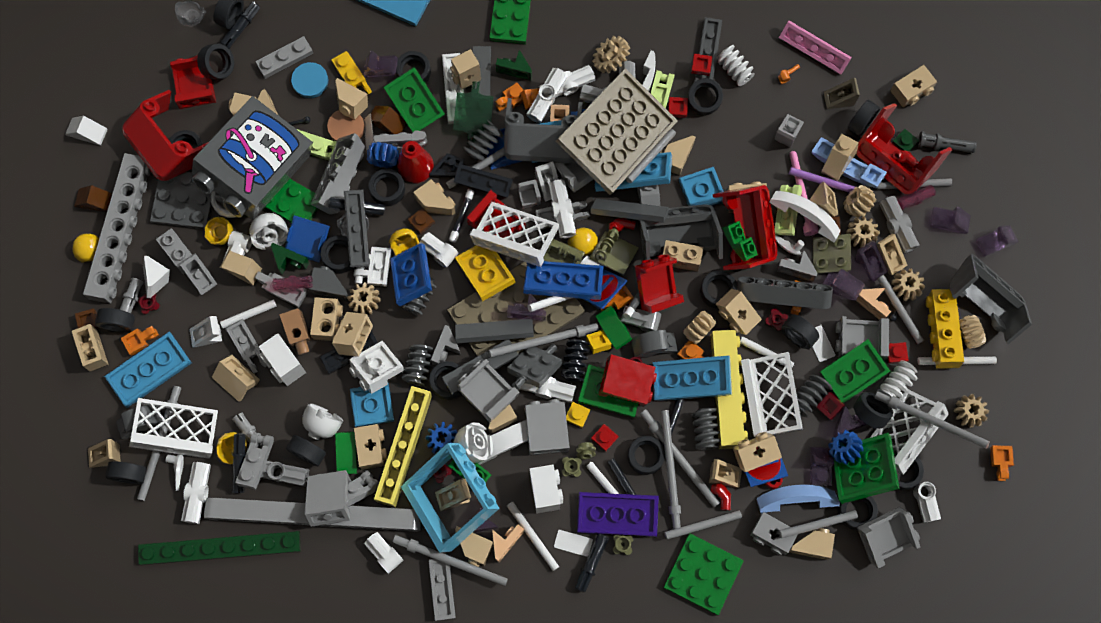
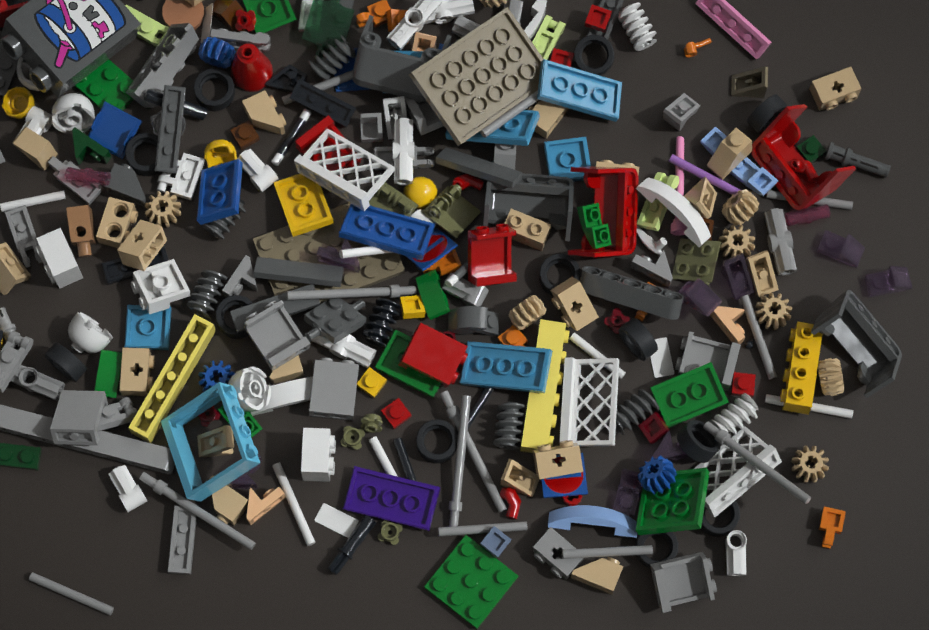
camera: 10 degrees right, 0 degrees up
(405, 118) = (249, 24): none -> red plate
(700, 128) = (579, 90): none -> dark azure tile
(717, 534) = (495, 541): none -> sand blue tile

